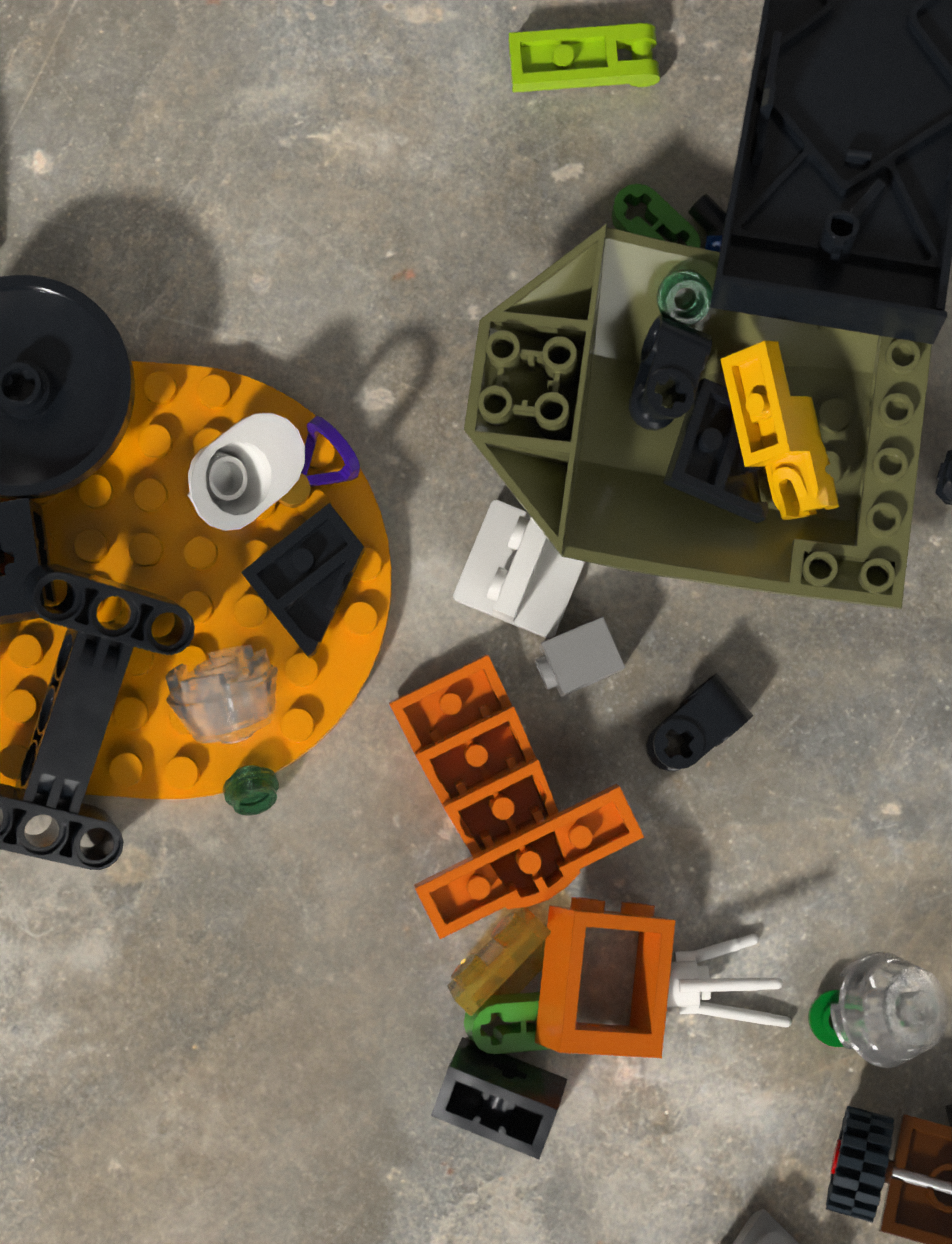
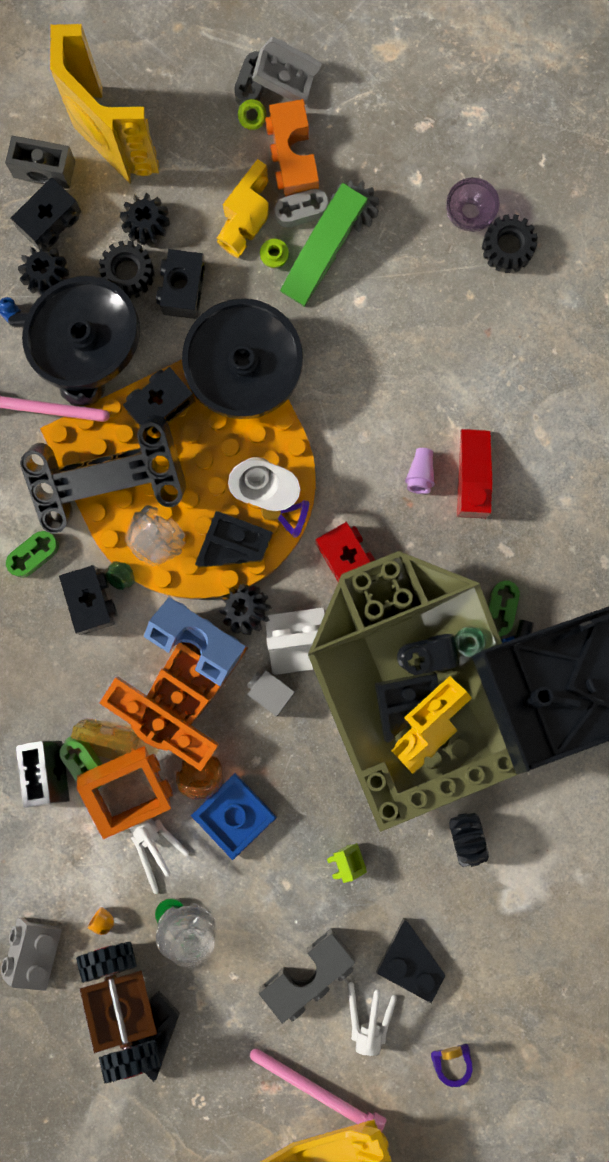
camera: 65 degrees right, 0 degrees up
(117, 915) = (37, 559): none -> bright green beam
(226, 870) = (76, 588): none -> black brick
(373, 226) = (421, 473): none -> lavender cone
(388, 737) = (177, 624): none -> medium blue arch
(406, 417) = (335, 542): none -> red brick
(425, 146) = (475, 474): none -> red slope
(433, 640) = (239, 619): none -> black gear
(582, 57) = (565, 524): lime plate -> none
(660, 855) = (197, 783): none -> clear orange hair
(703, 720) = (276, 770): black piece -> none
(740, 829) = (234, 816): none -> blue plate
(787, 1137) = (101, 922): none -> light orange hinge
(915, 689) = (349, 863): none -> lime tile

